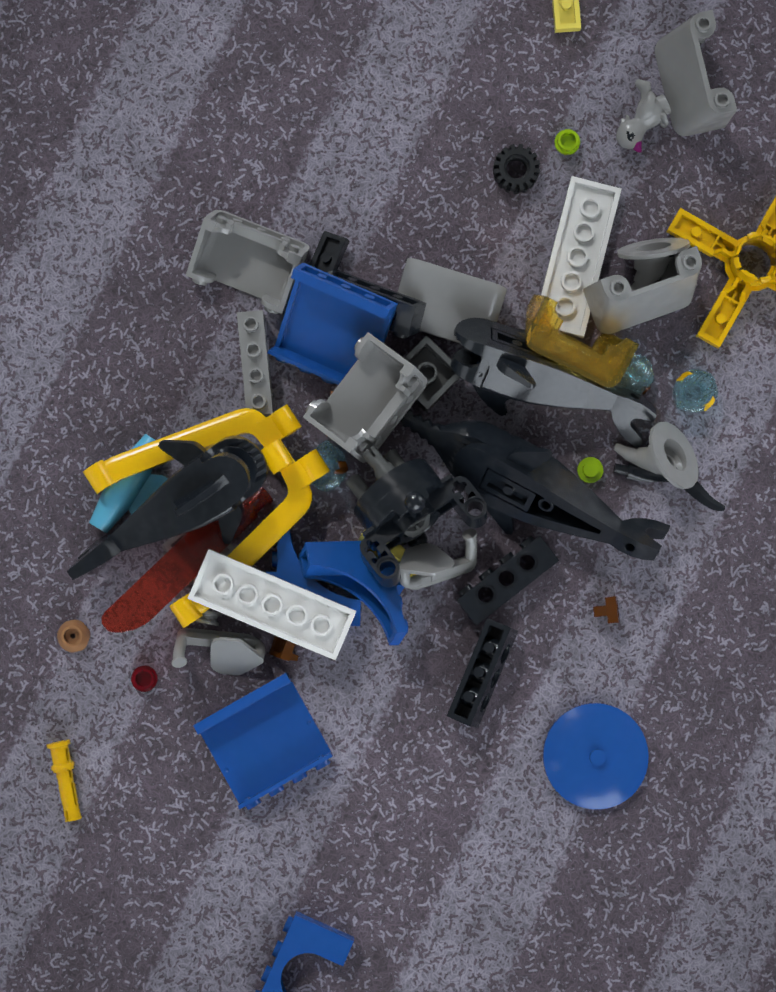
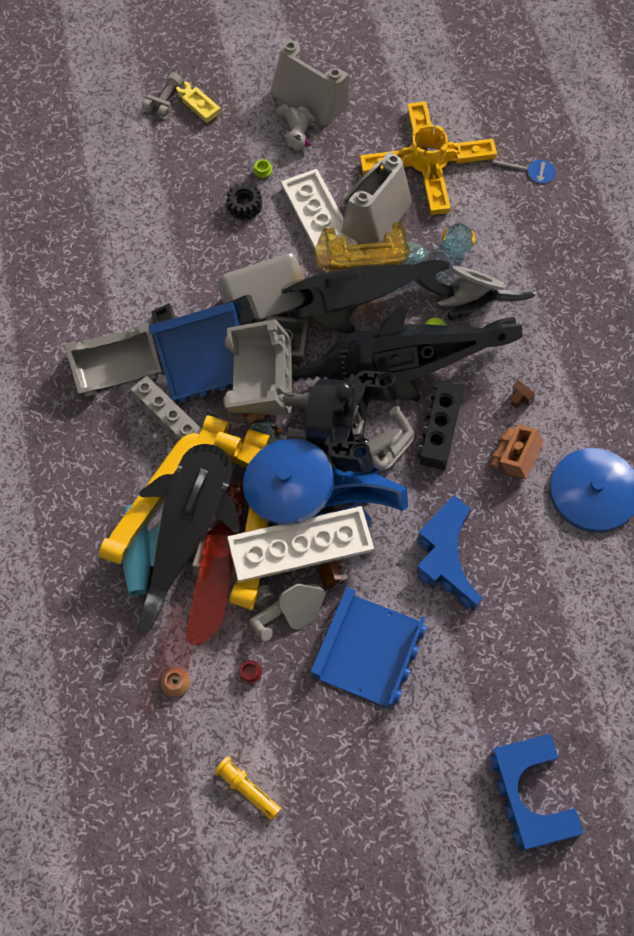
camera: 30 degrees left, 20 degrees down
(305, 537) = (288, 481): none -> blue dish
(392, 716) = (443, 563): none -> blue arch
(482, 673) = (477, 489): black brick -> none
(554, 668) = (517, 451): none -> nougat brick

